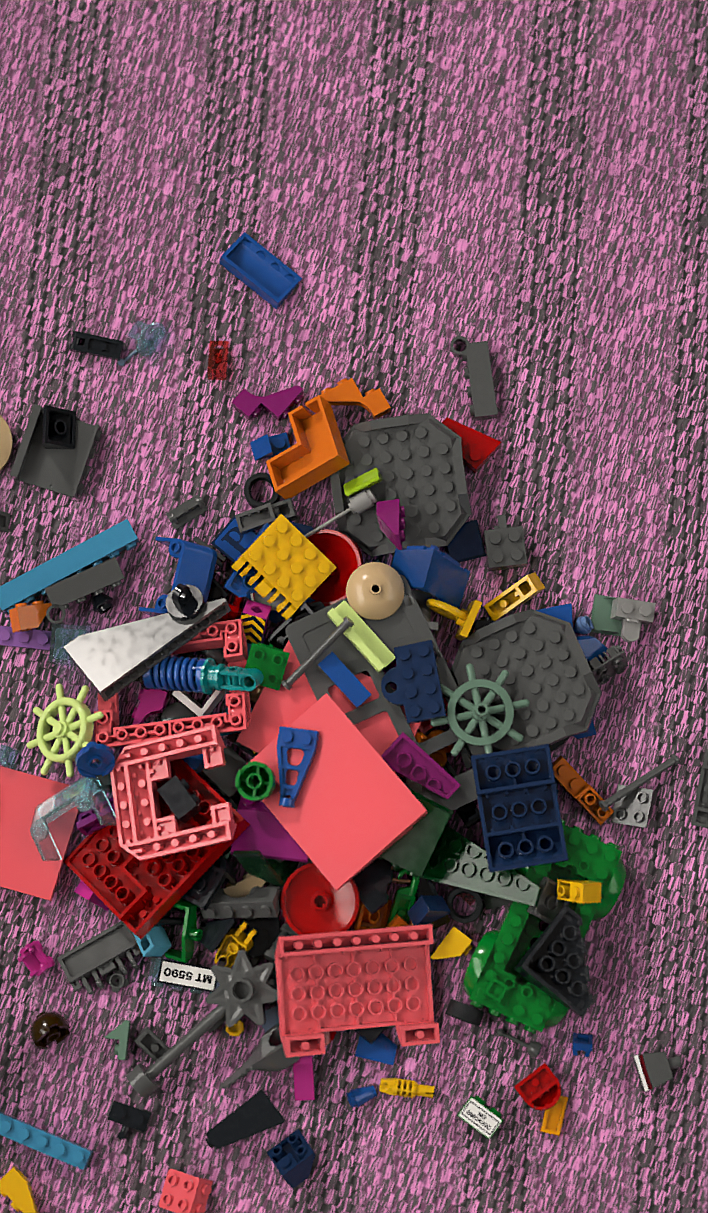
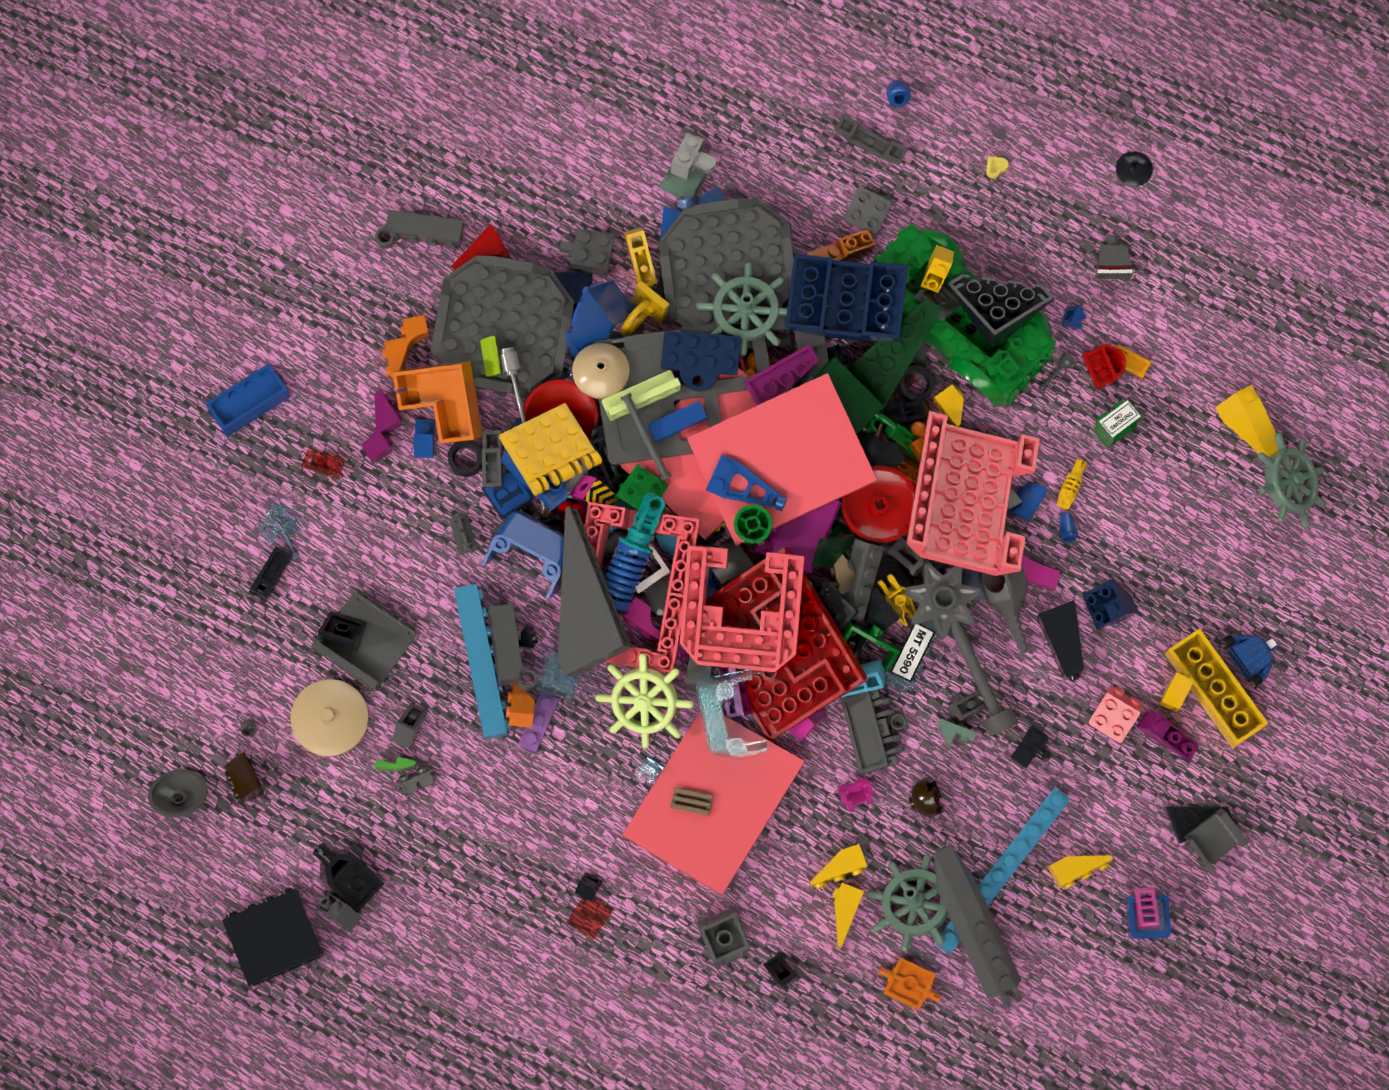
camera: 80 degrees left, 5 degrees down
(95, 751) = (685, 681): blue plate -> none
(180, 799) = (745, 604): black hinge -> none
(184, 602) = (558, 546): black tile -> none
(235, 1030) = (974, 628): yellow tile -> none
(392, 521) = (539, 338): magenta slope -> none
(428, 910) = (914, 415): dark blue slope -> none
(464, 1012) = (1017, 410): black tyre -> none
(604, 804) = (835, 163): dark grey bar -> none
(614, 665) = (728, 186): dark grey hinge -> none

